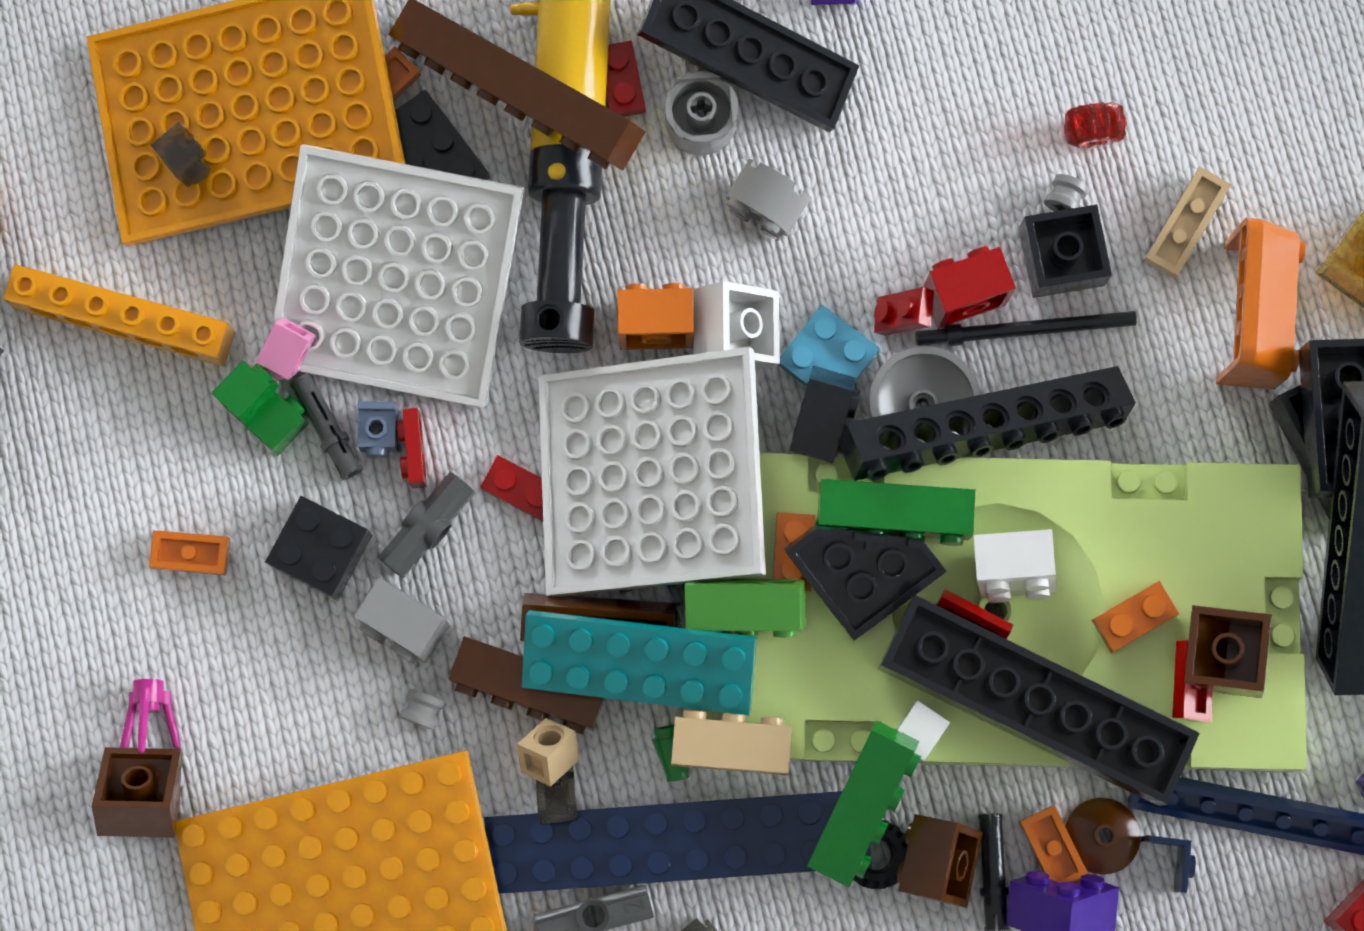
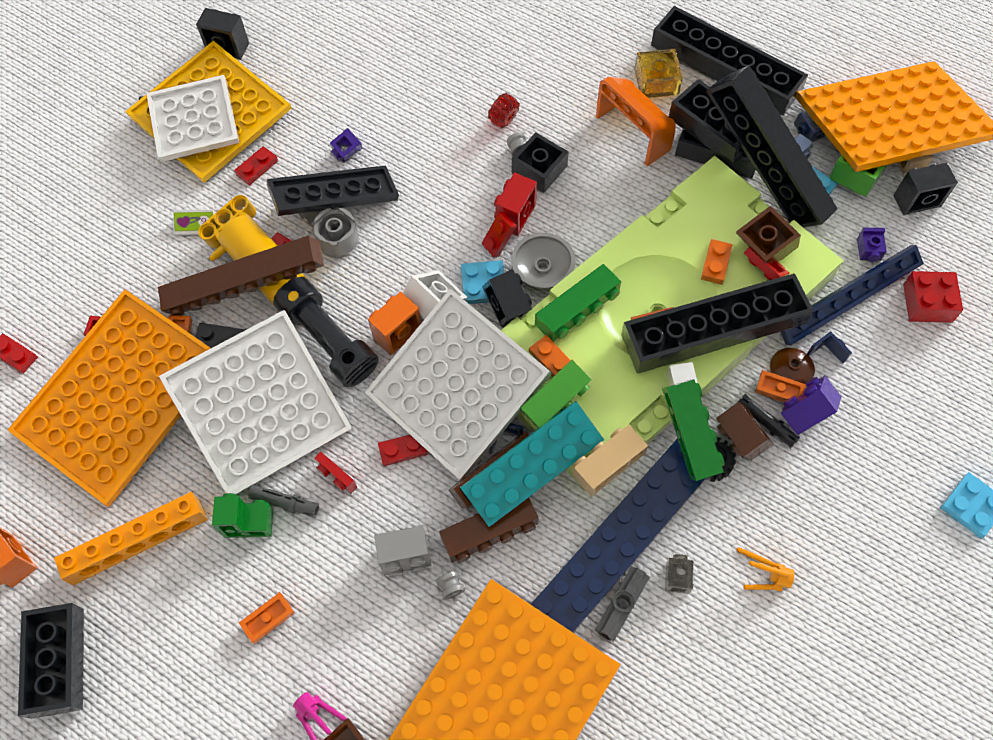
camera: 40 degrees left, 15 degrees down
(182, 155) = (102, 436): clear smoke brick -> none
(285, 349) = (231, 478): bright pink brick -> none
(319, 548) = (330, 556): black brick -> none
(377, 412) = (305, 471): sand blue brick -> none
(426, 524) = (373, 501): dark grey piece -> none
(548, 751) = (529, 545): tan brick -> none
(558, 801) = (550, 563): clear smoke brick -> none
(663, 745) = (580, 497): green cone -> none
(767, 199) = (397, 239): light grey brick -> none
(863, 572) = (591, 337): black plate -> none
(955, 334) = (528, 229): black bar -> none
(1015, 565) = (650, 279): white brick -> none
(1048, 409) = (576, 244): black brick -> none
(1187, 222) = (575, 118): tan plate -> none

